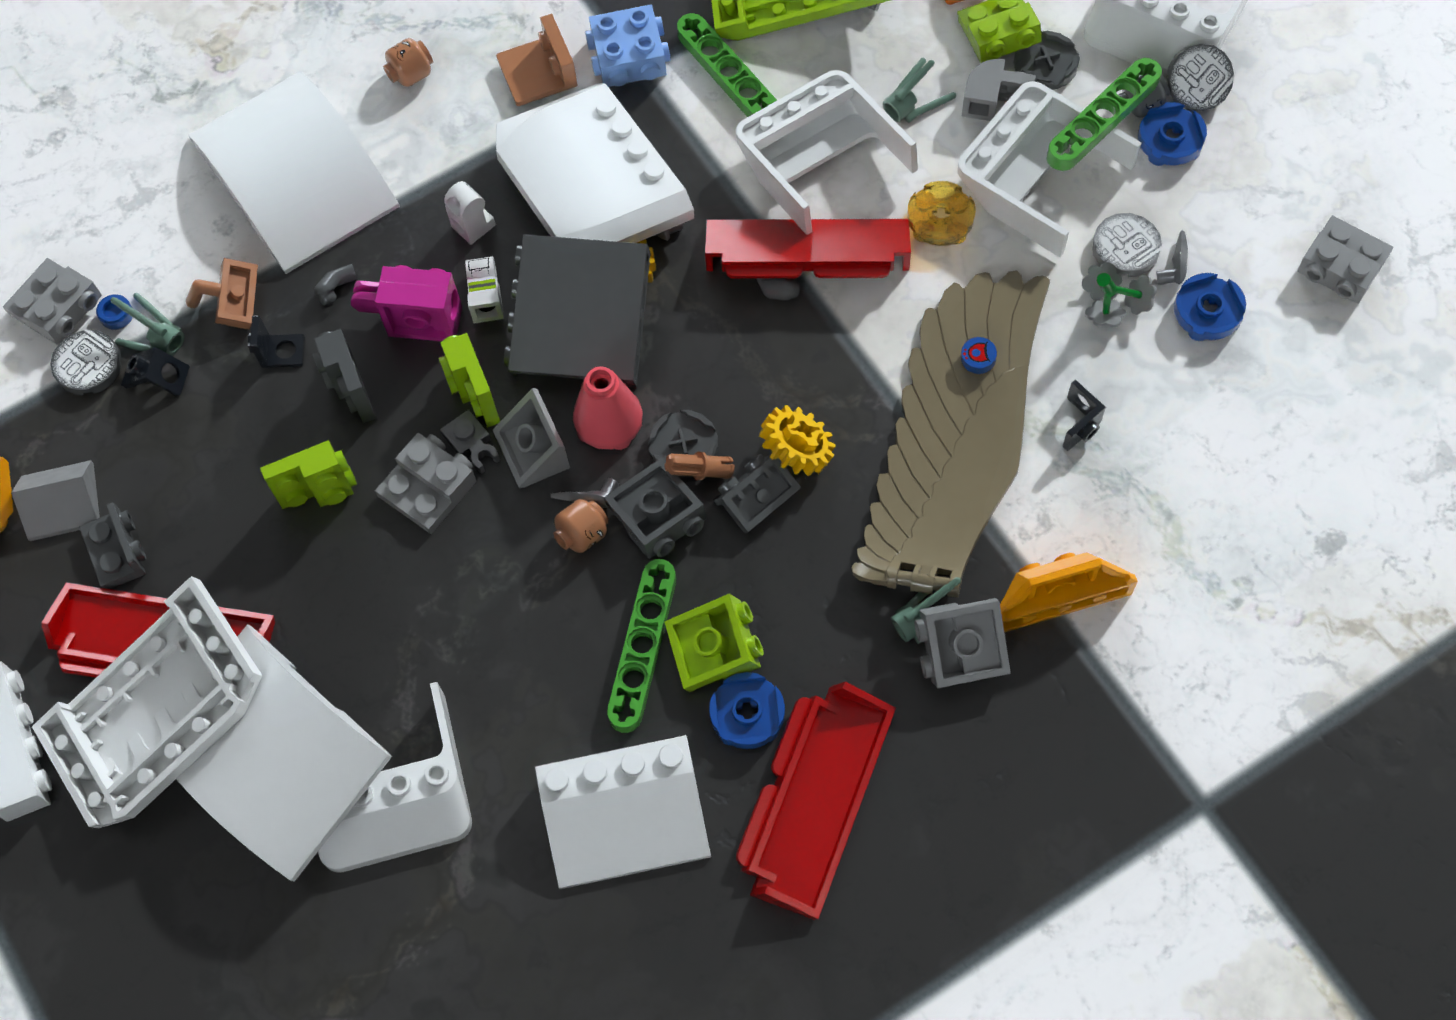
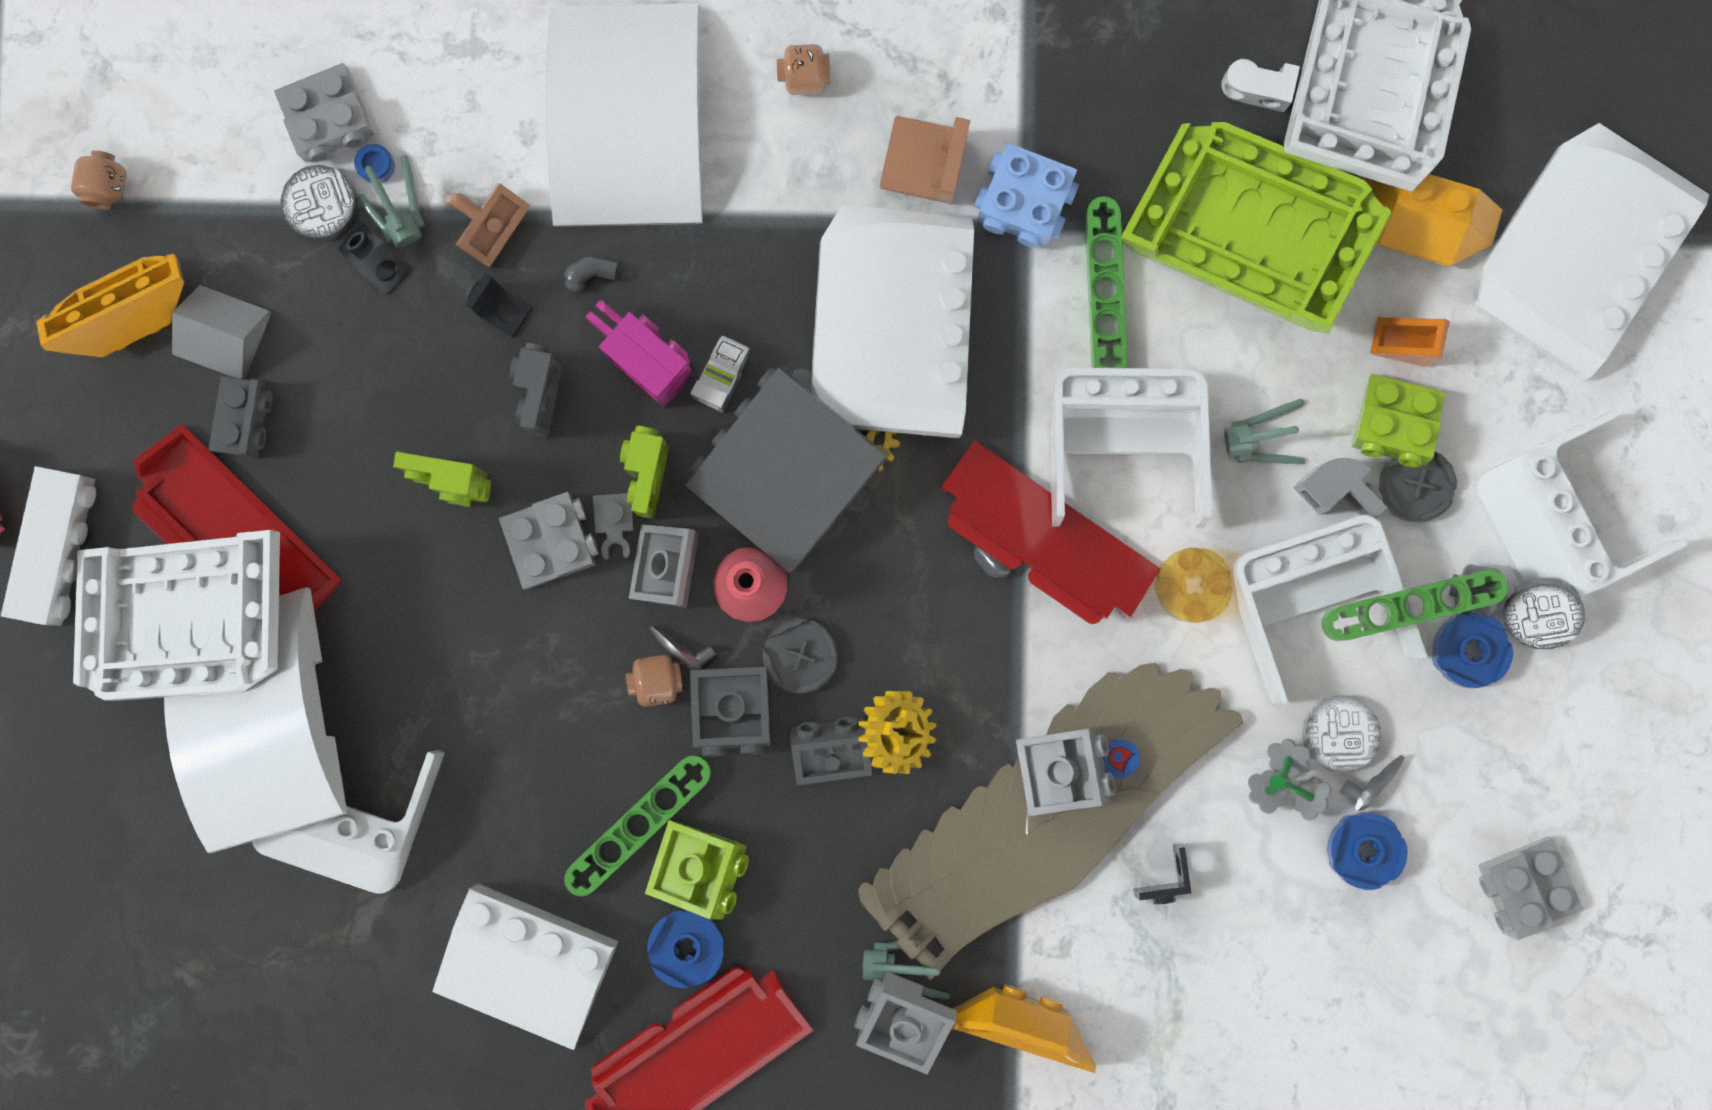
camera: 25 degrees right, 20 degrees up
(467, 212) = (755, 287): white leg -> none
(699, 465) = (794, 697): nougat axle -> none
(944, 385) = (1065, 771): none -> light grey plate

